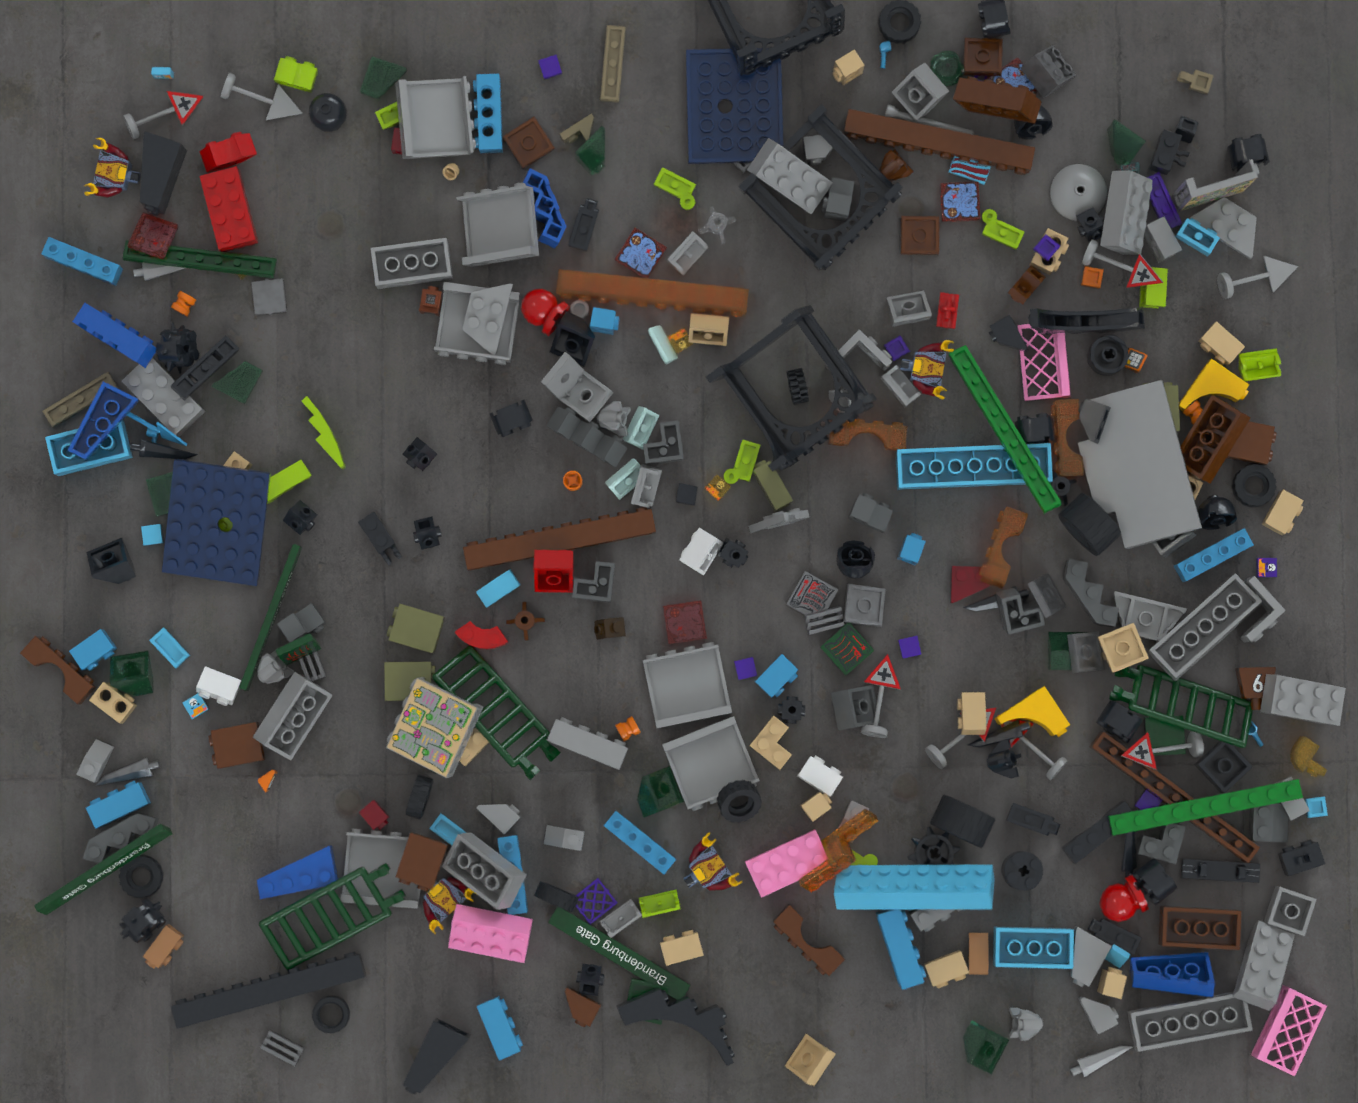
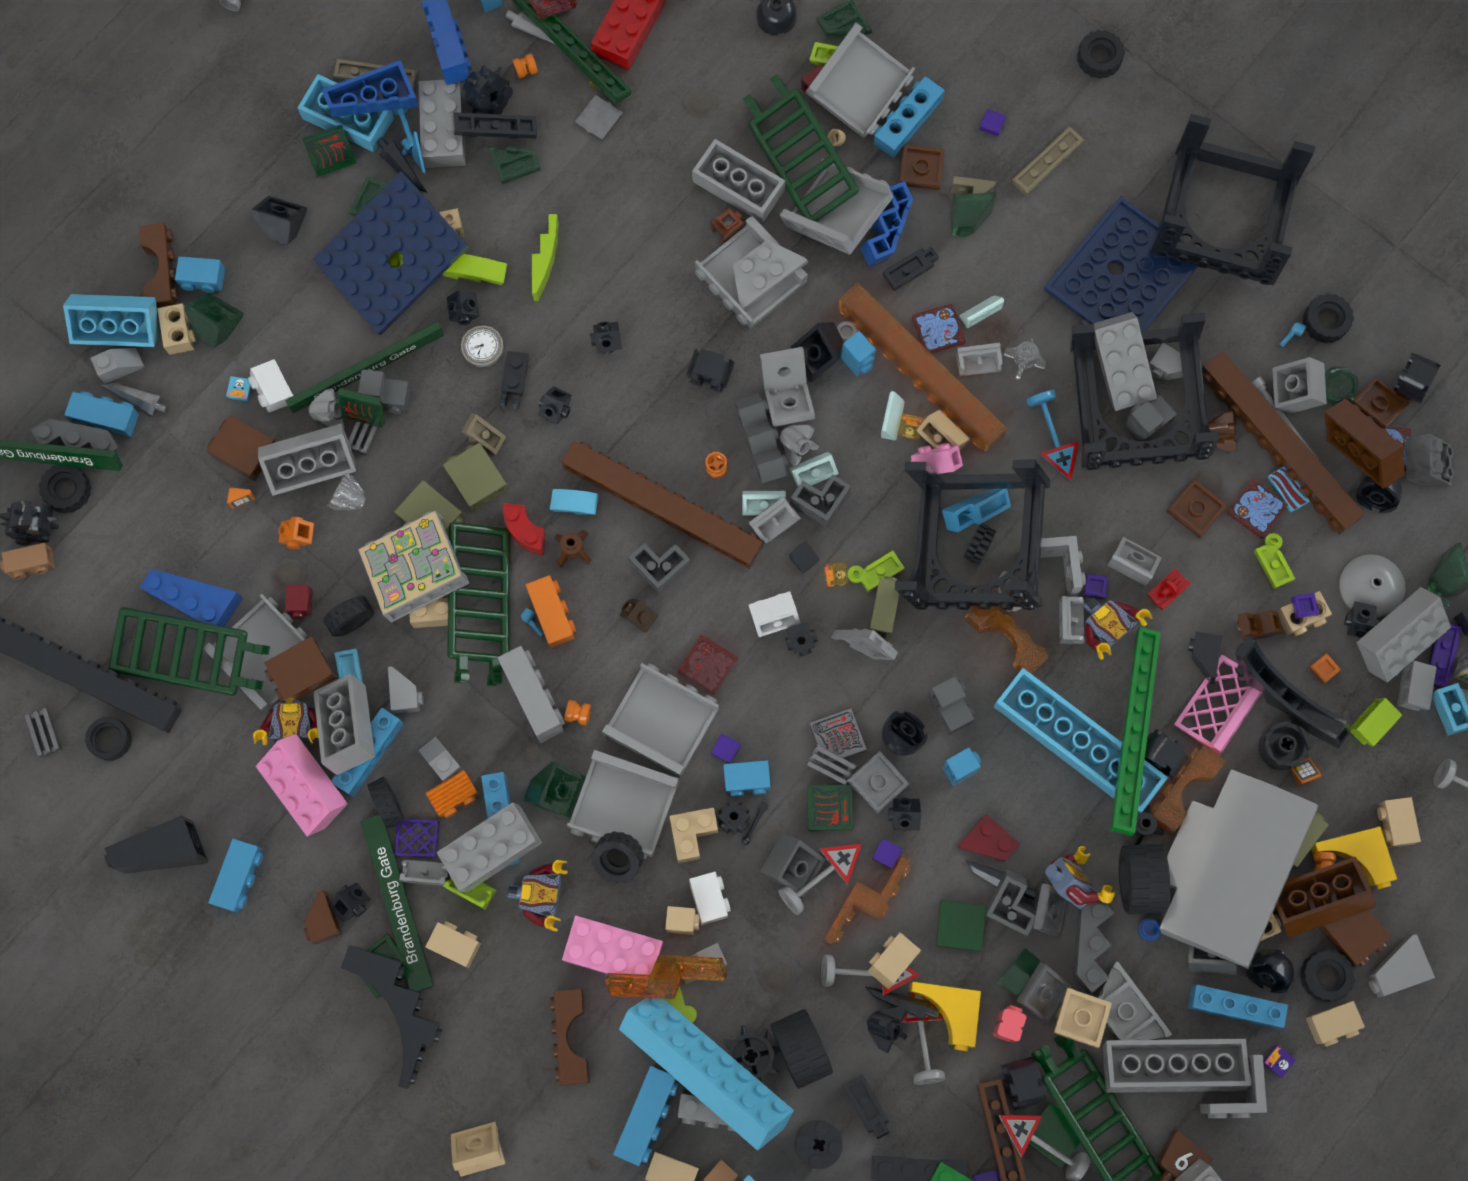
camera: 45 degrees right, 10 degrees down
(66, 735) = (112, 320): none -> medium azure brick
(103, 485) = (329, 150): none -> dark green tile
(152, 534) = (332, 224): medium azure tile -> none
(169, 647) = (262, 325): medium azure tile -> none
(330, 771) = (296, 532): none -> orange brick
(337, 533) = (482, 346): none -> tile
(340, 716) = (347, 495): none -> clear brick
(395, 594) = (481, 431): none -> dark tan slope
(432, 179) = (791, 187): none -> dark green bar
(536, 693) = (527, 616): none -> dark azure hand
(542, 309) = (815, 304): red tile -> none
(550, 676) = (551, 611): none -> orange brick
(553, 571) = (632, 522): red brick -> none
(593, 853) = (452, 794): none -> orange brick
(653, 867) = (489, 847): none -> light grey brick
(658, 215) = (981, 311): none -> light aqua slope
(676, 186) = (1017, 299): lime hinge -> none
(720, 352) = (941, 459): none -> bright pink brick
(774, 364) = (976, 509): none -> dark azure slope
(801, 274) = (1060, 457): none -> dark azure piece
(810, 716) = (763, 807): none -> black hinge
(848, 67) = (1251, 317): tan brick -> none
(900, 611) = (905, 814): none -> black brick
(924, 689) = (868, 901): none -> clear orange bracket
(996, 569) = (1025, 848): clear orange arch -> none
(996, 653) = (961, 926): none -> dark green tile
(1044, 565) = (1072, 883): none -> torso
(1080, 691) = (1009, 1024): none -> coral brick
(1093, 417) = (1226, 788): black slope -> none
(1117, 551) = (1149, 929): none -> blue plate
(1141, 274) = (1376, 697): light grey piece -> none
(1259, 364) = (1421, 870): lime hinge -> none
(1297, 441) = (1401, 968): none -> light grey slope

